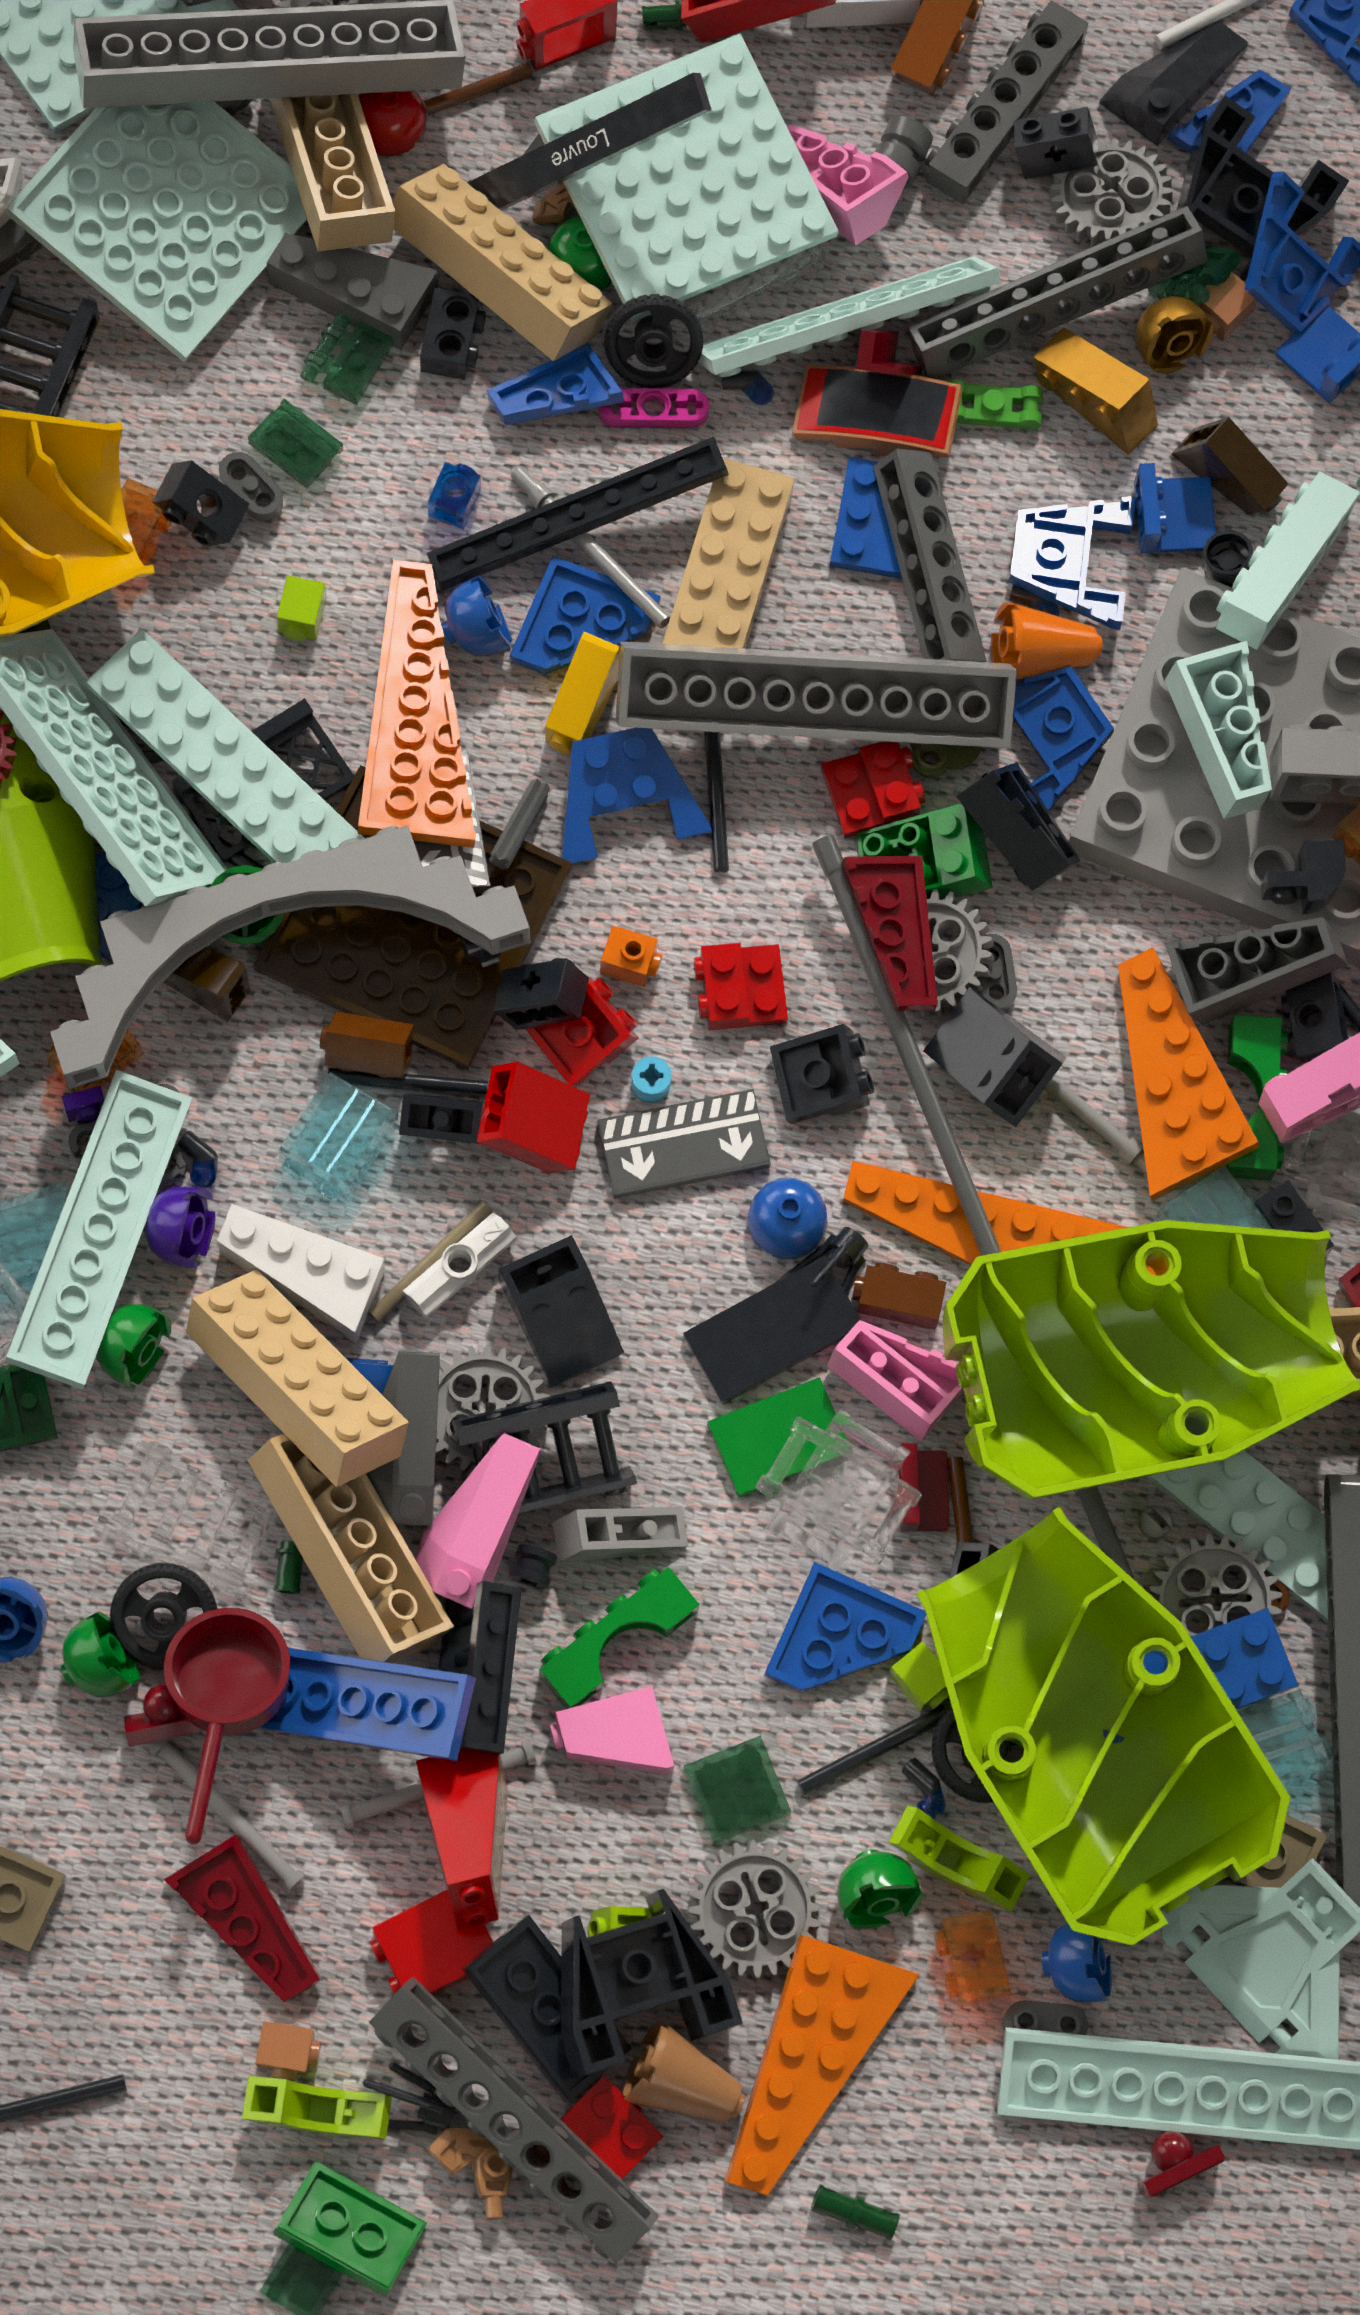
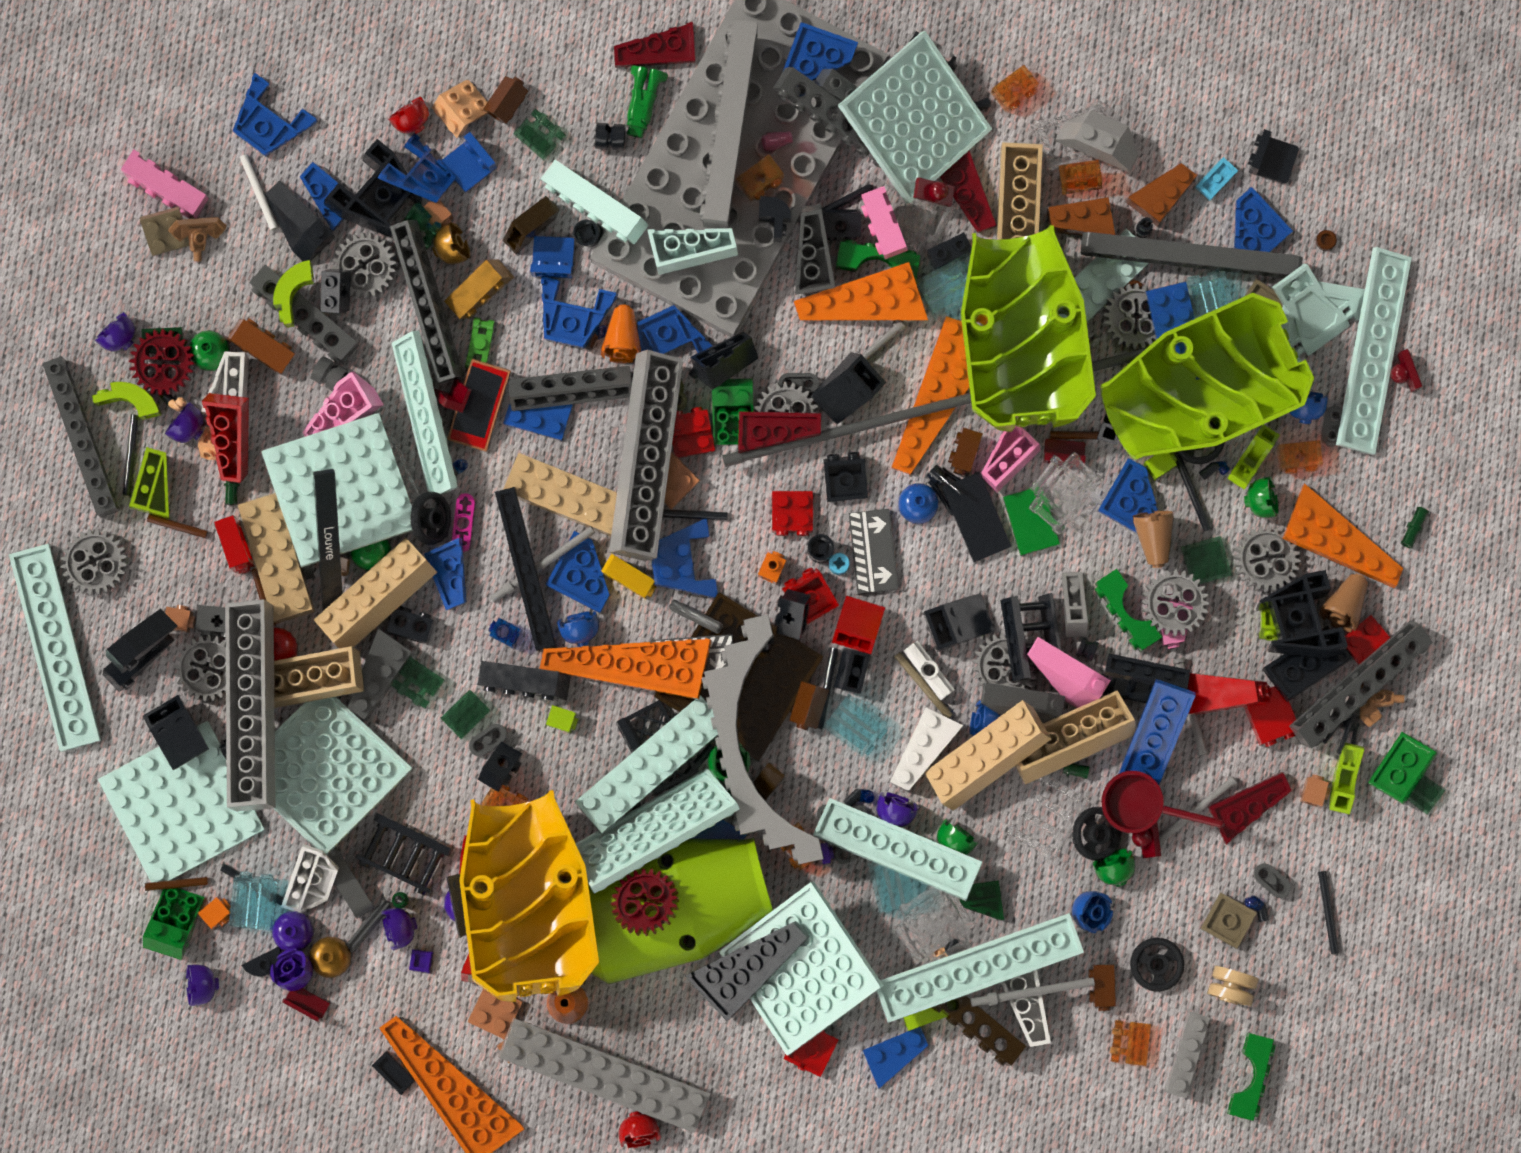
camera: 75 degrees left, 10 degrees up
(45, 1956) = (1258, 905): none -> arm
(95, 1978) = (1272, 879): none -> dark grey plate
(365, 535) = (523, 680): none -> black wedge
(496, 113) = (276, 559): none -> tan brick
(676, 1038) = (820, 548): none -> black wheel
(676, 1727) = (1179, 584): none -> light grey gear
(773, 1670) = (1155, 535): none -> medium nougat cone
(777, 766) = (679, 481): none -> nougat plate
(1048, 57) = (287, 286): none -> lime arch

